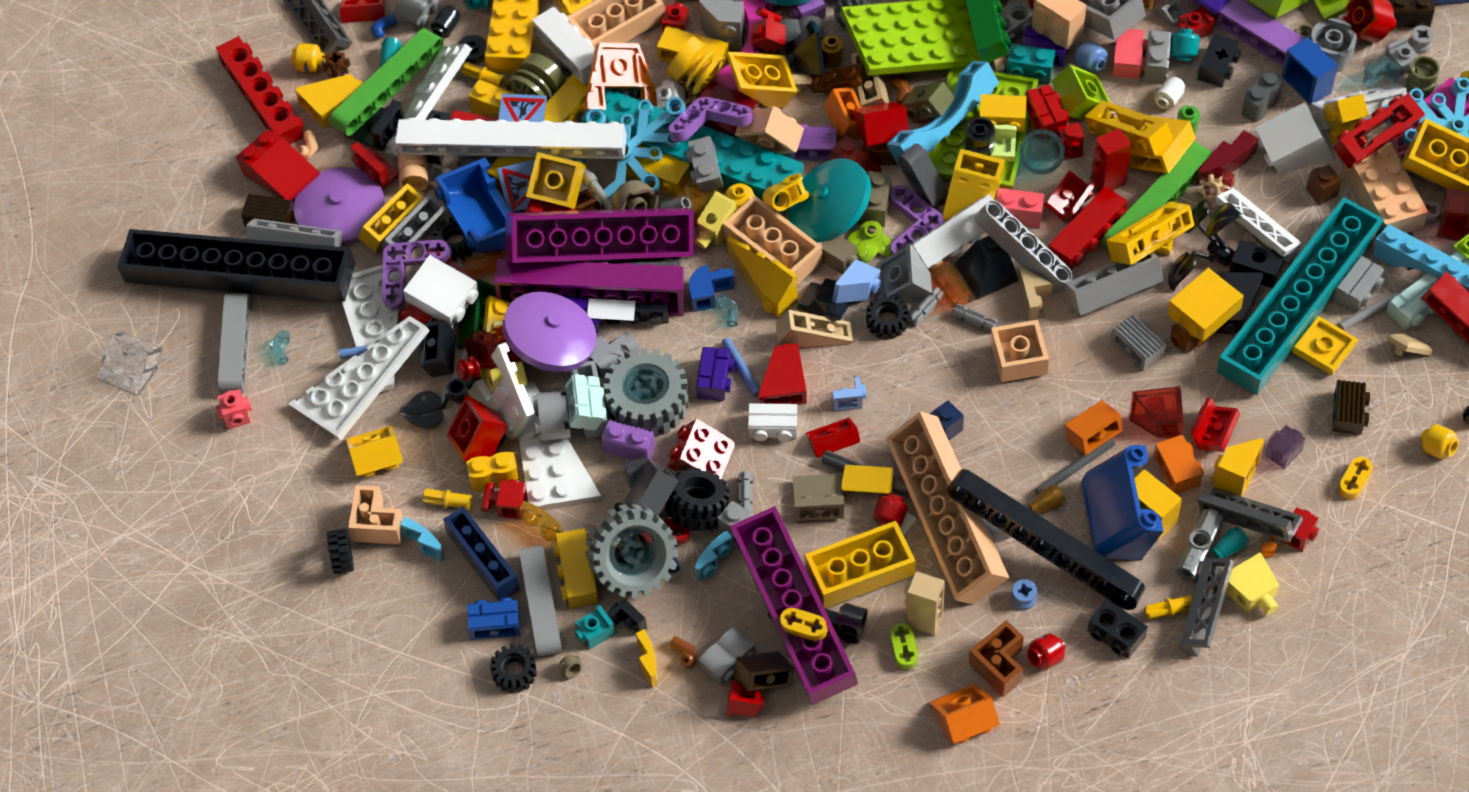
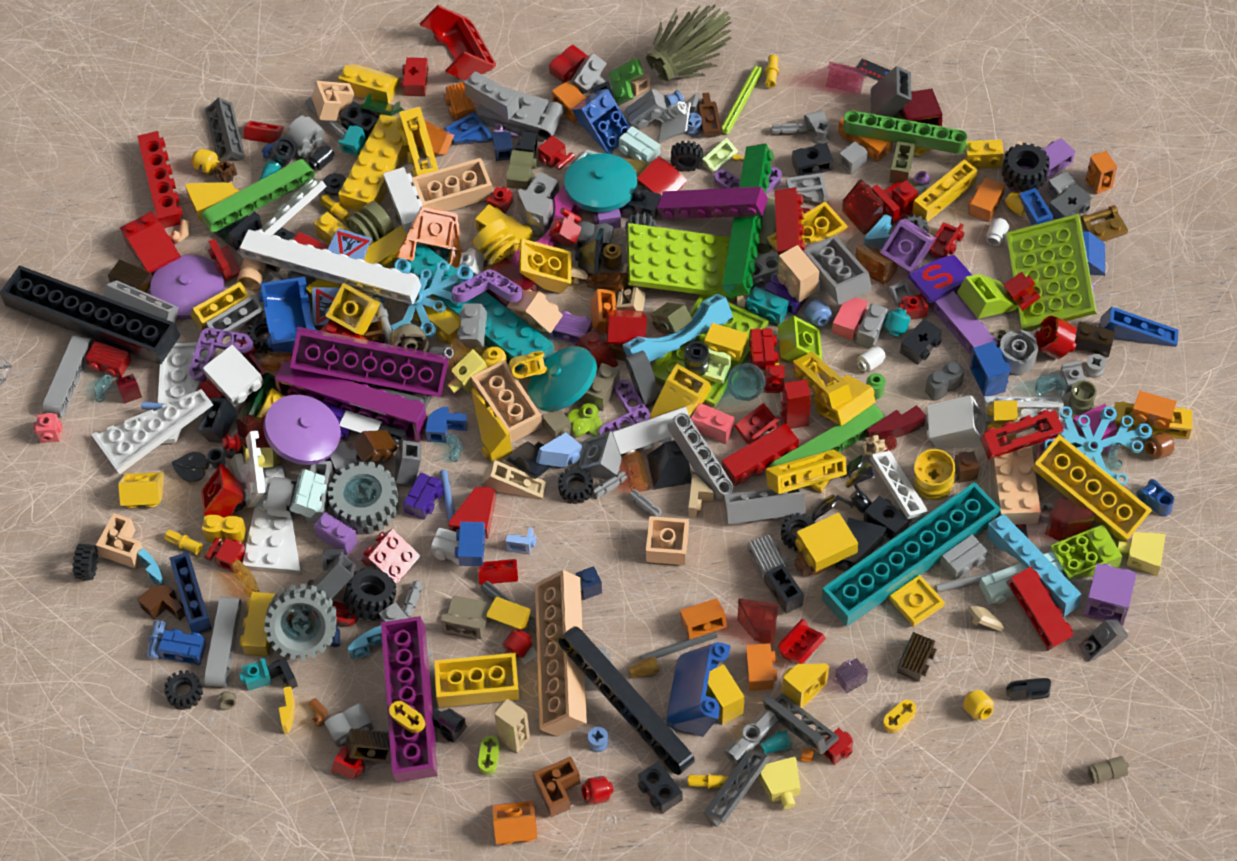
camera: 15 degrees right, 0 degrees up
(276, 312) = (108, 359): none -> red brick
(313, 339) = (128, 388): none -> dark red slope
(398, 24) = (282, 151): none -> black wheel
(446, 570) = (159, 599): none -> reddish brown brick
(458, 619) = (155, 639): none -> medium blue axle
(640, 329) = (374, 445): none -> reddish brown brick
(683, 339) = (407, 463): none -> flat silver slope
(797, 411) = (471, 543): none -> blue brick
(903, 86) = (659, 298): dark orange arm -> none
(1154, 293) = (790, 523): none -> black tyre
(1173, 369) = (784, 588): none -> black brick
(1293, 200) = (938, 465): none -> yellow wheel

